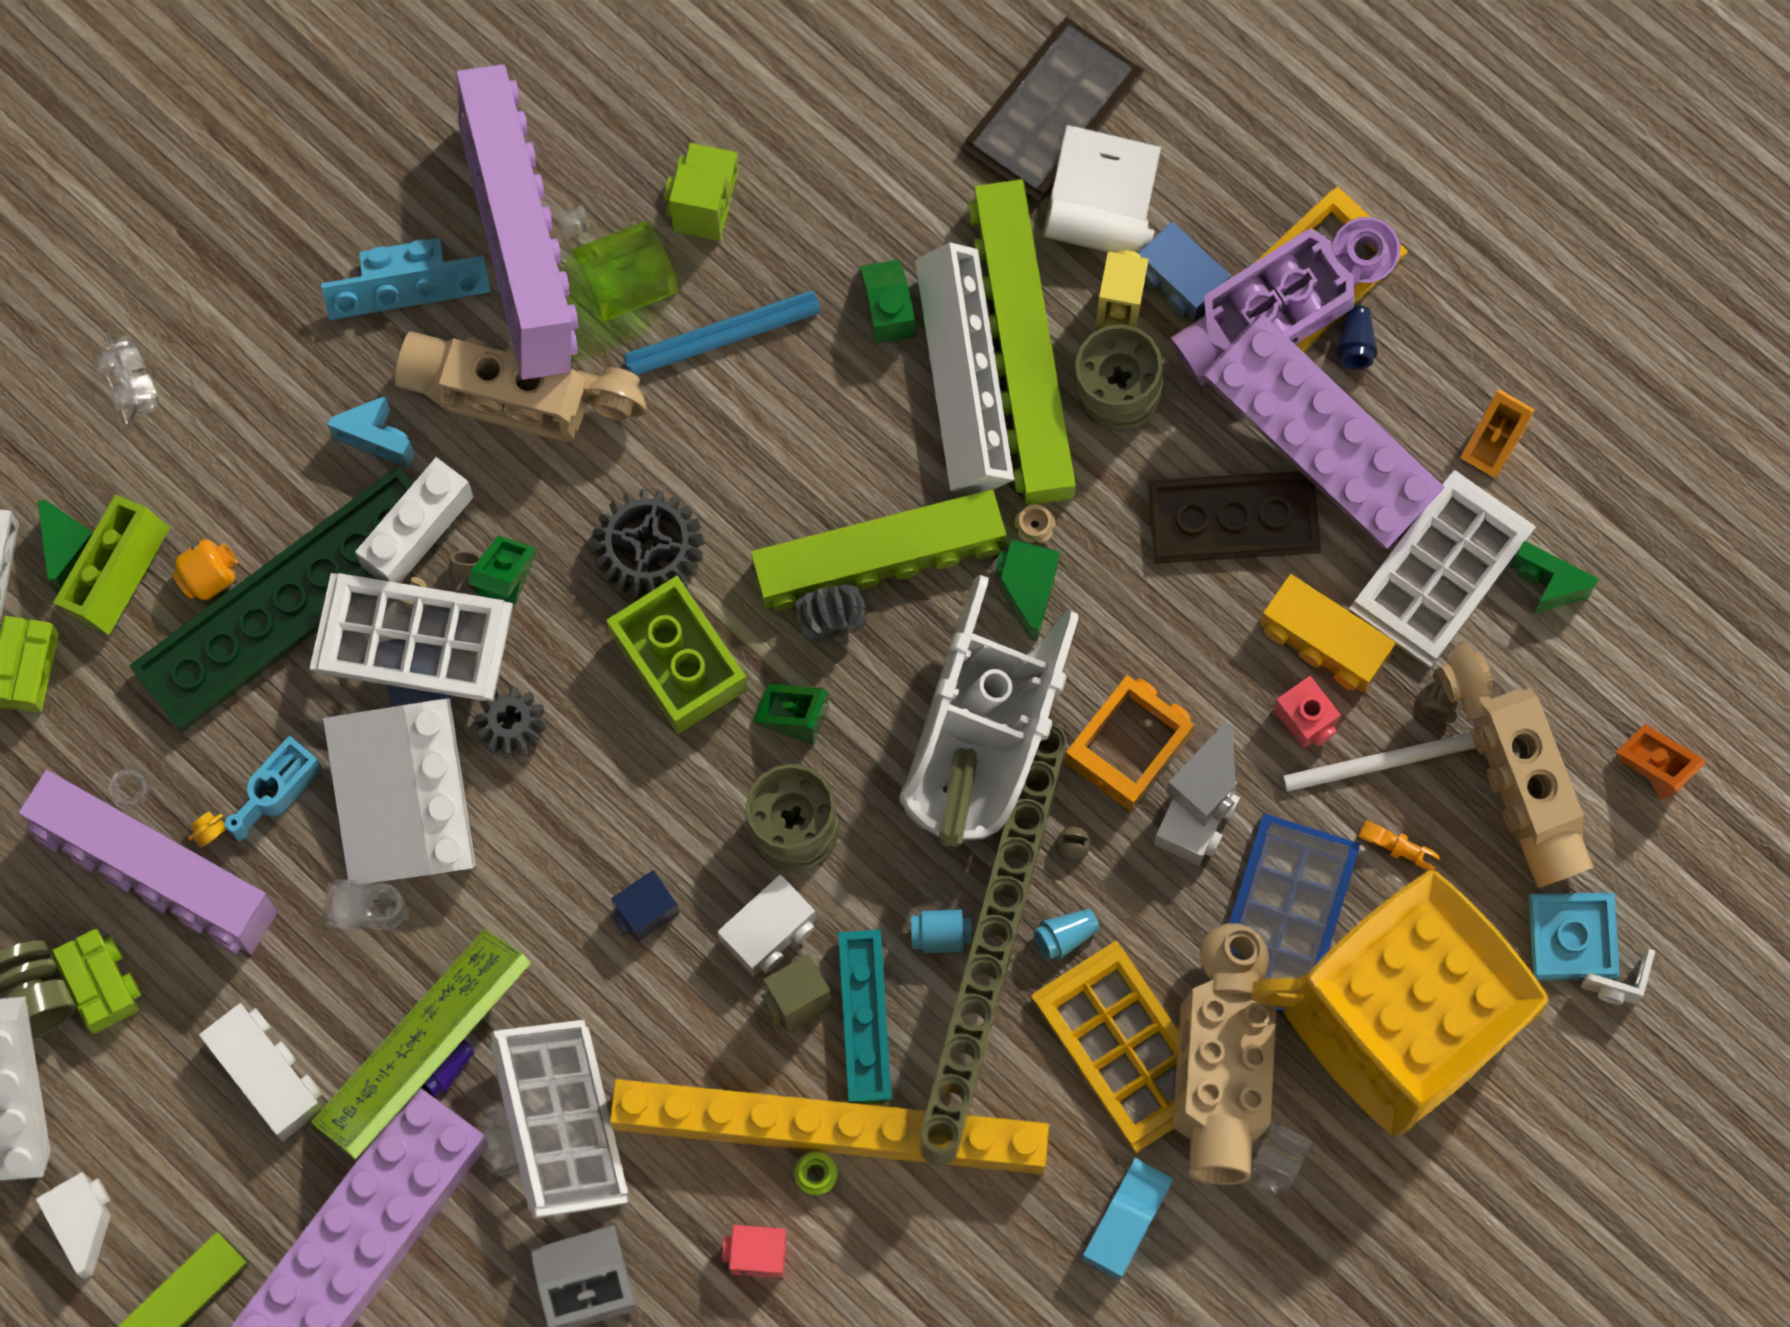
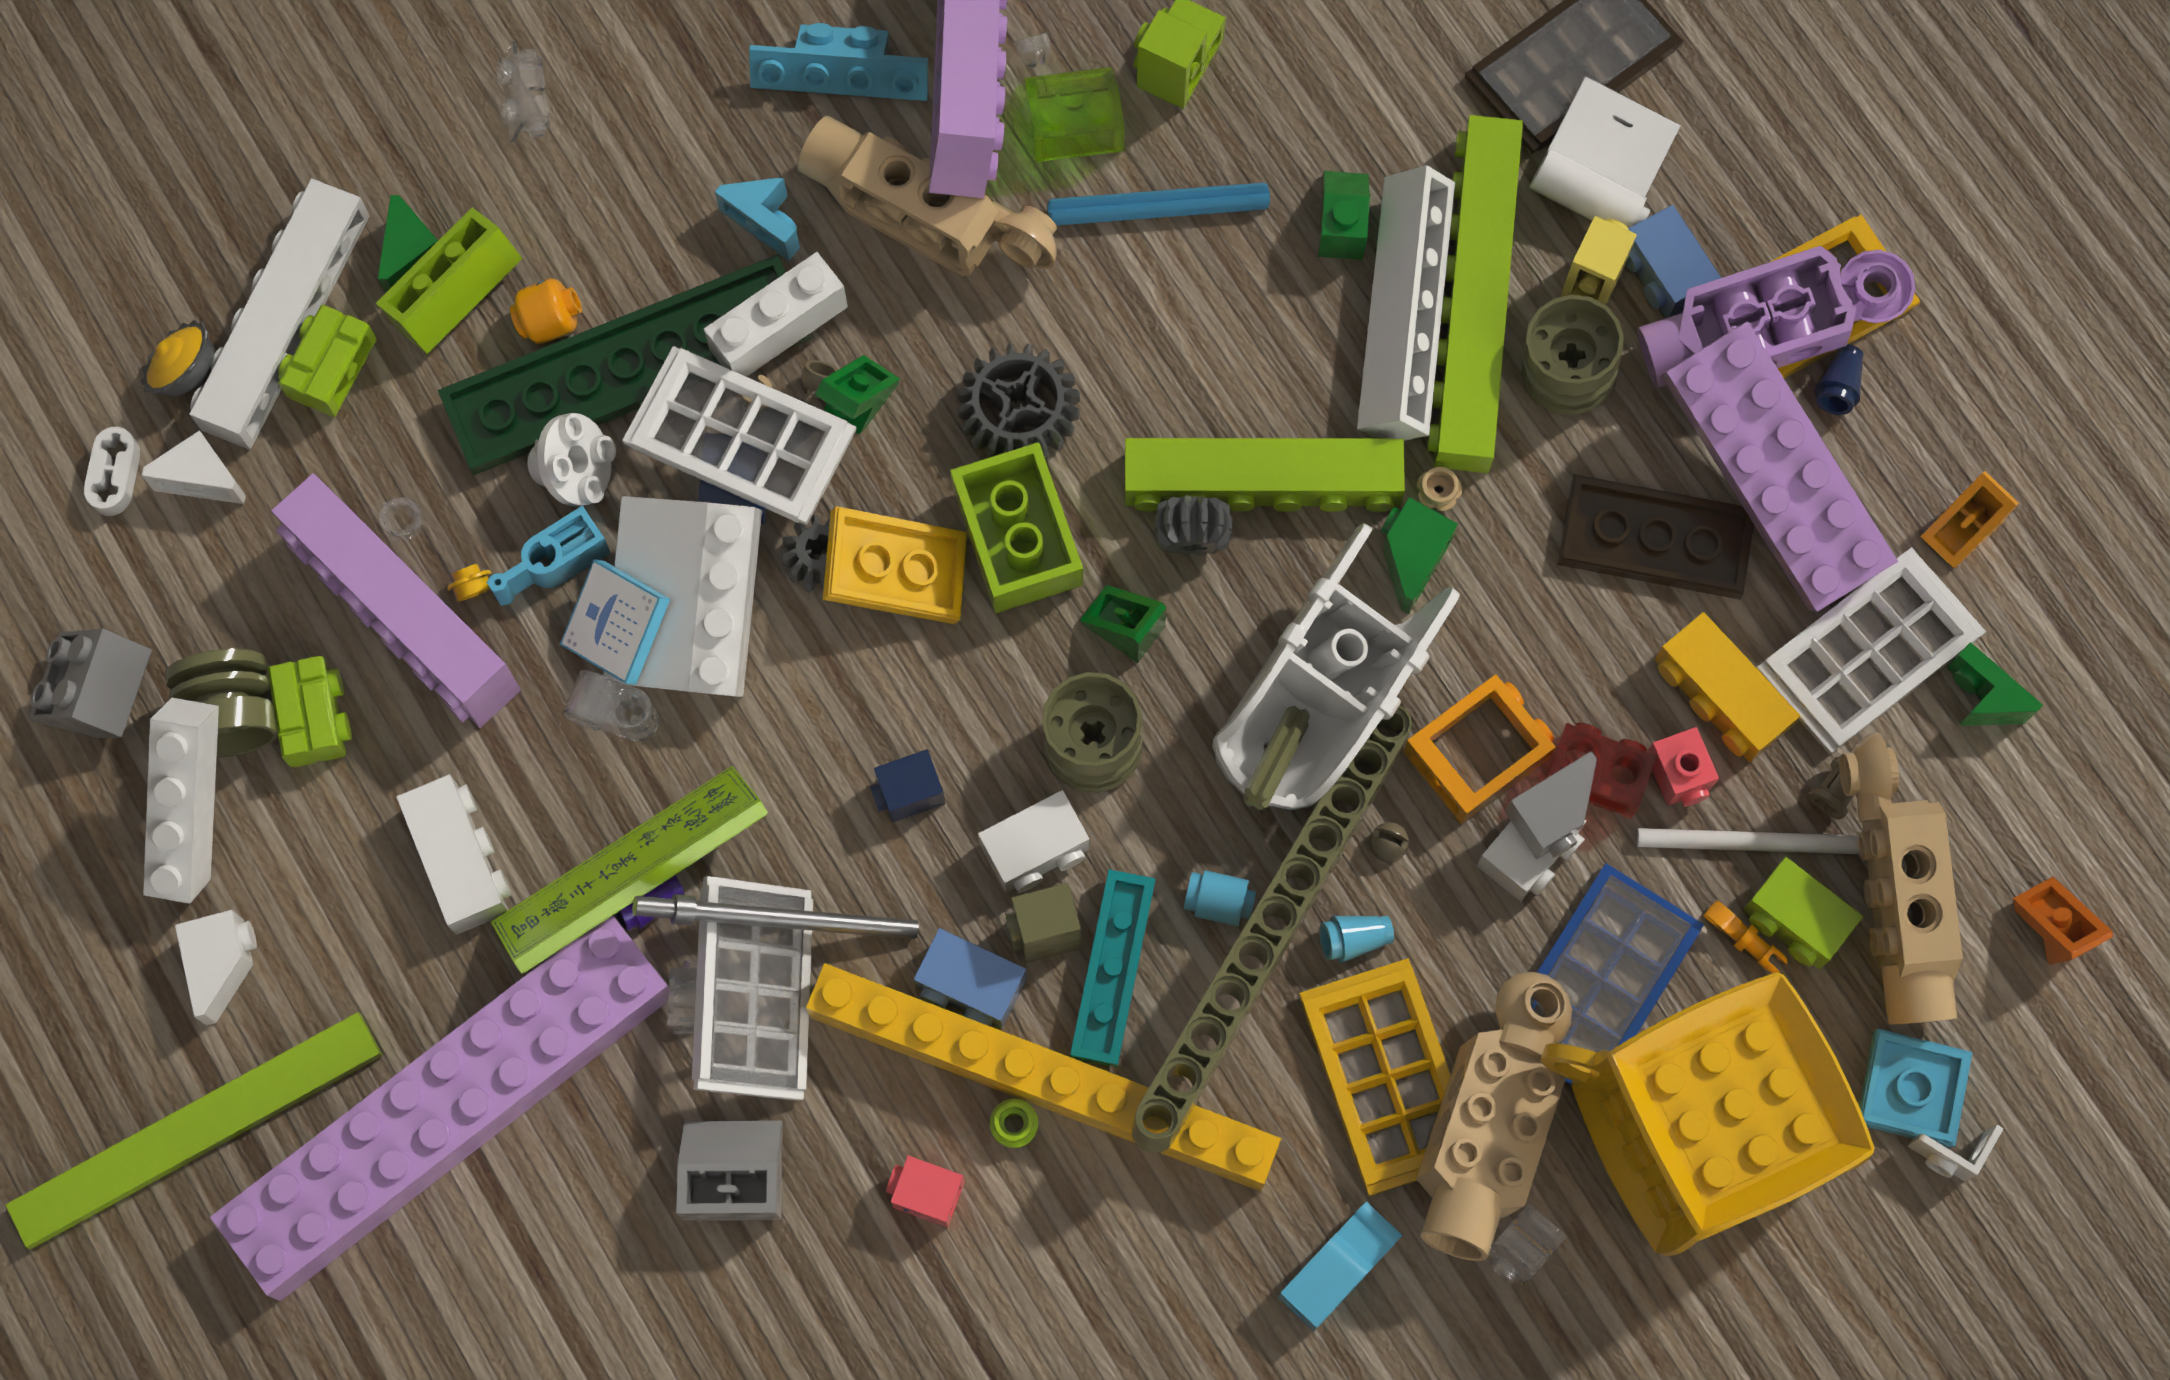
camera: 15 degrees right, 0 degrees up
(268, 697) = (572, 460): none -> white plate
(347, 830) = (615, 621): none -> white tile
(485, 1064) = (686, 910): none -> flat silver bar
(579, 716) = (894, 565): none -> yellow tile
(743, 1060) = (969, 979): none -> medium blue brick
(1246, 750) = (1605, 789): none -> clear red brick
(1441, 813) = (1802, 914): none -> lime brick

